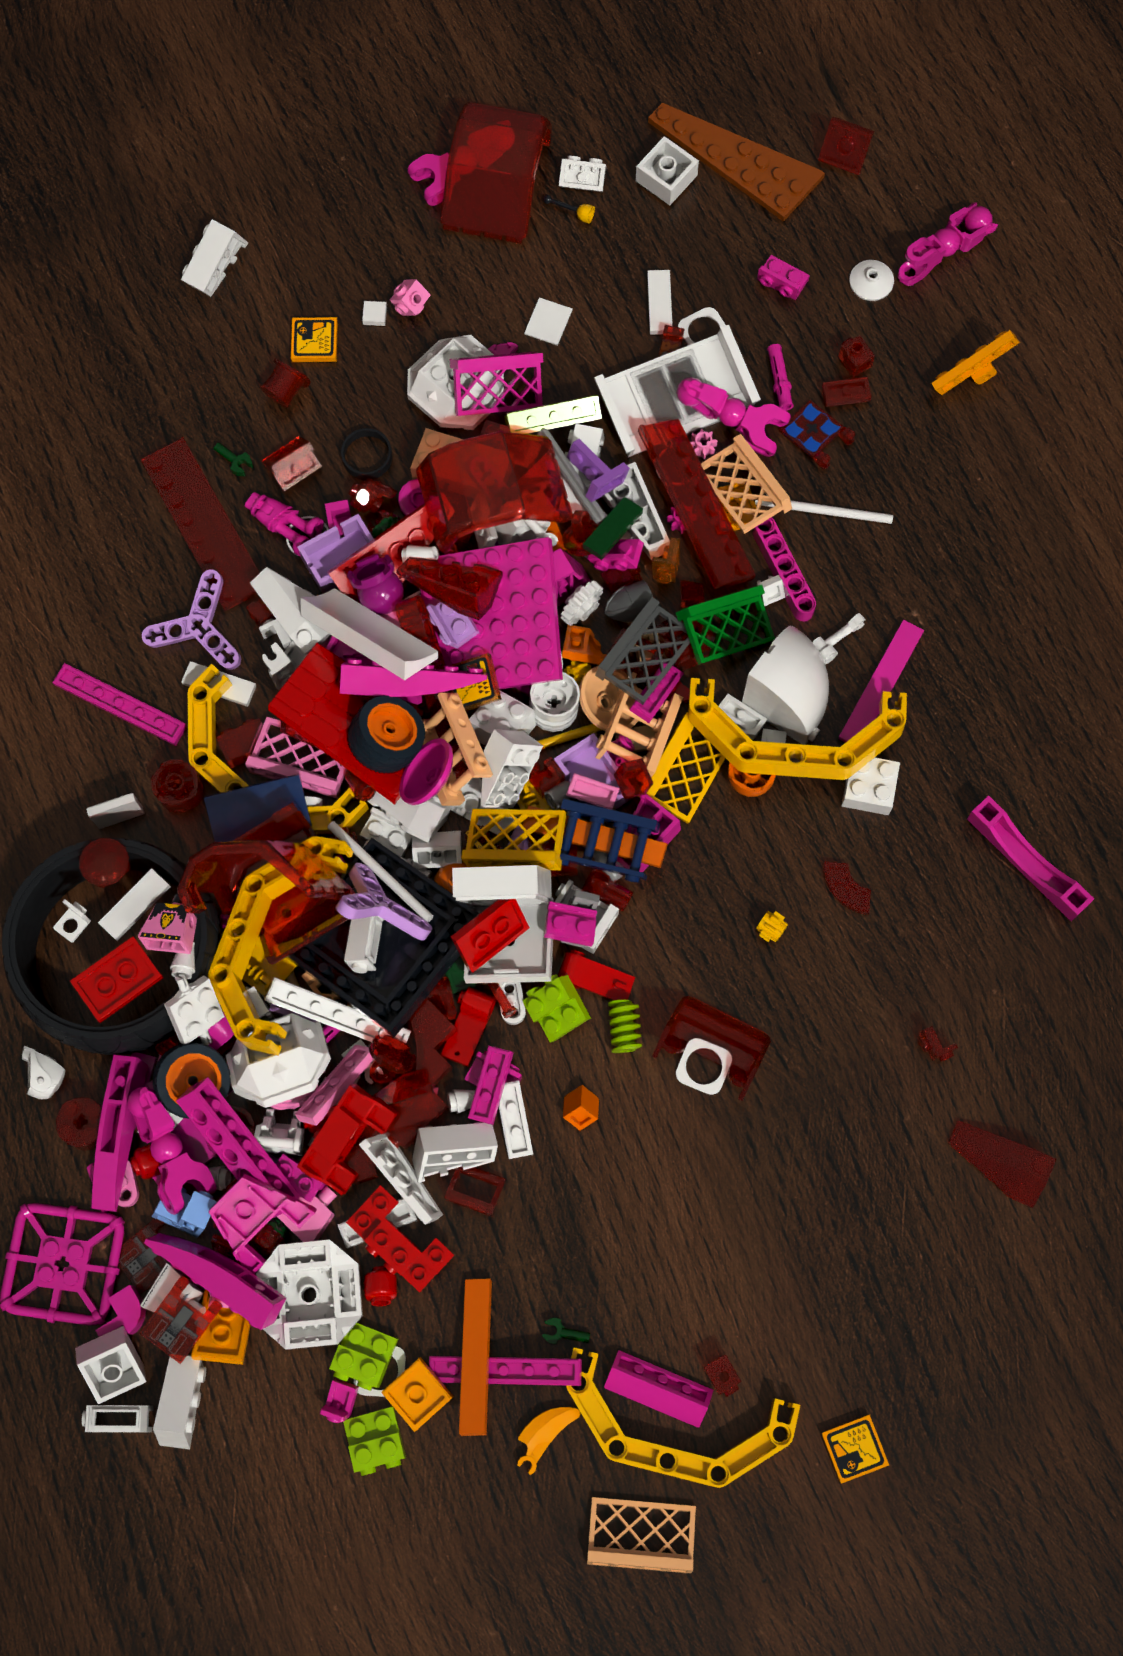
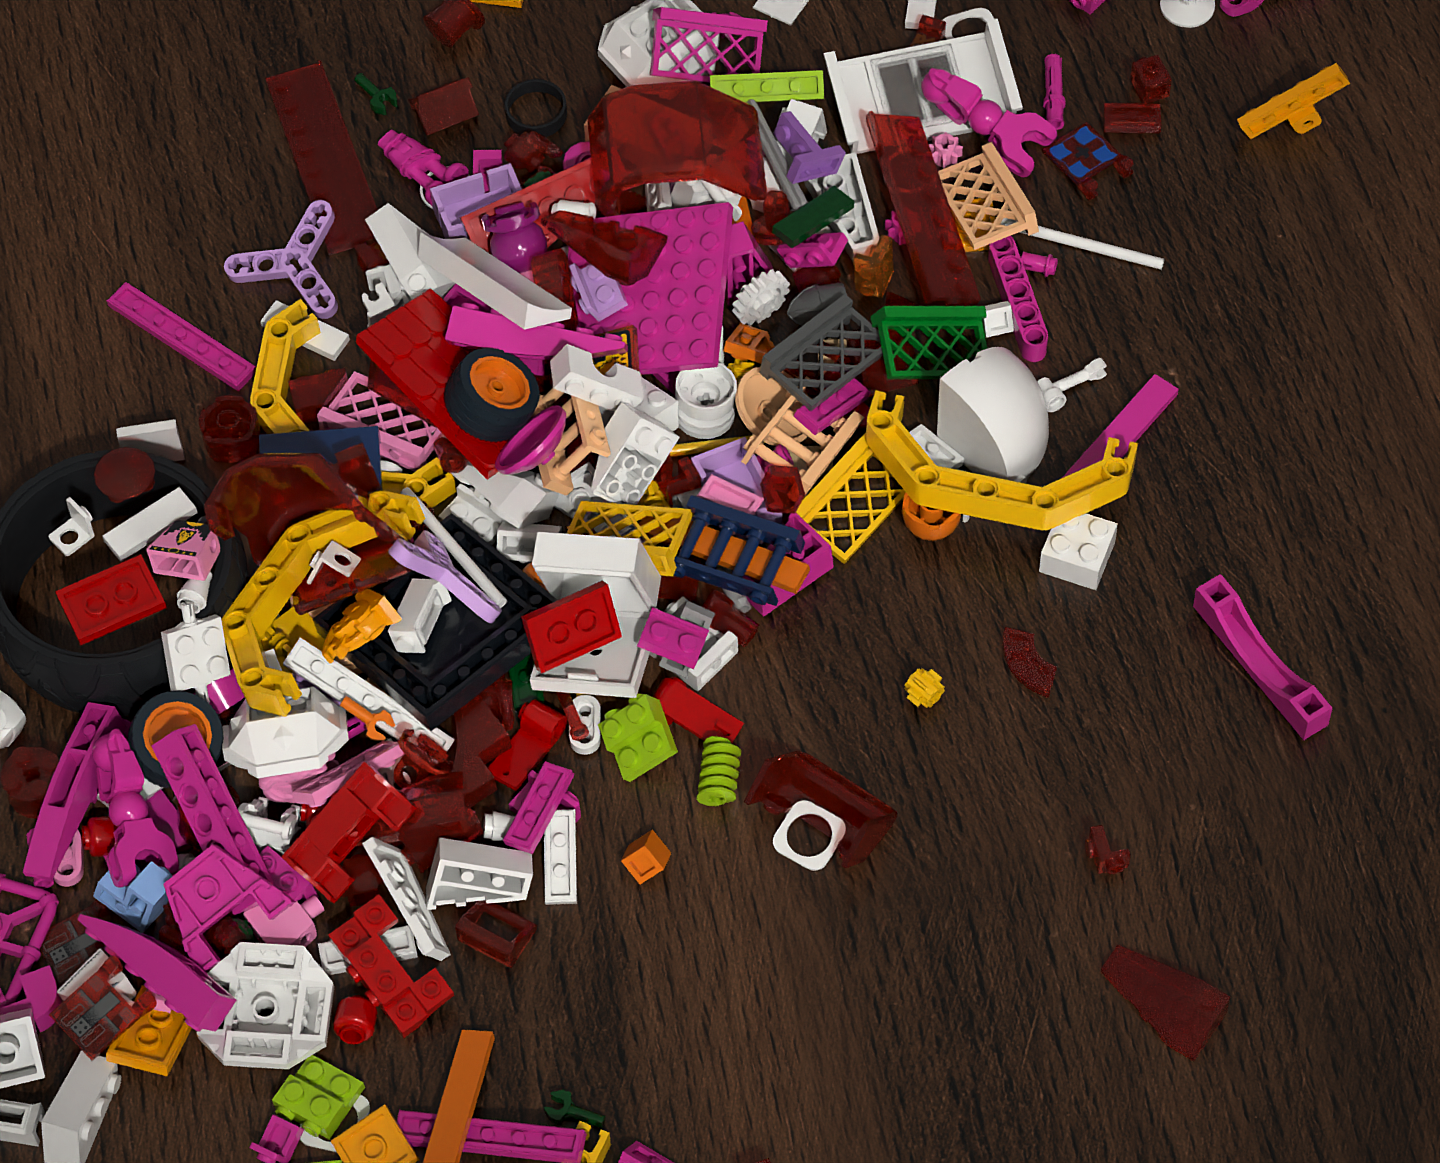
camera: 10 degrees right, 15 degrees down
(281, 901) = (328, 558): none -> white bracket
(318, 961) = (361, 623): none -> light orange piece
(341, 1031) = (368, 718): none -> orange bar
(456, 715) = (577, 376): none -> white arch
(795, 534) = (1039, 263): none -> dark pink pin

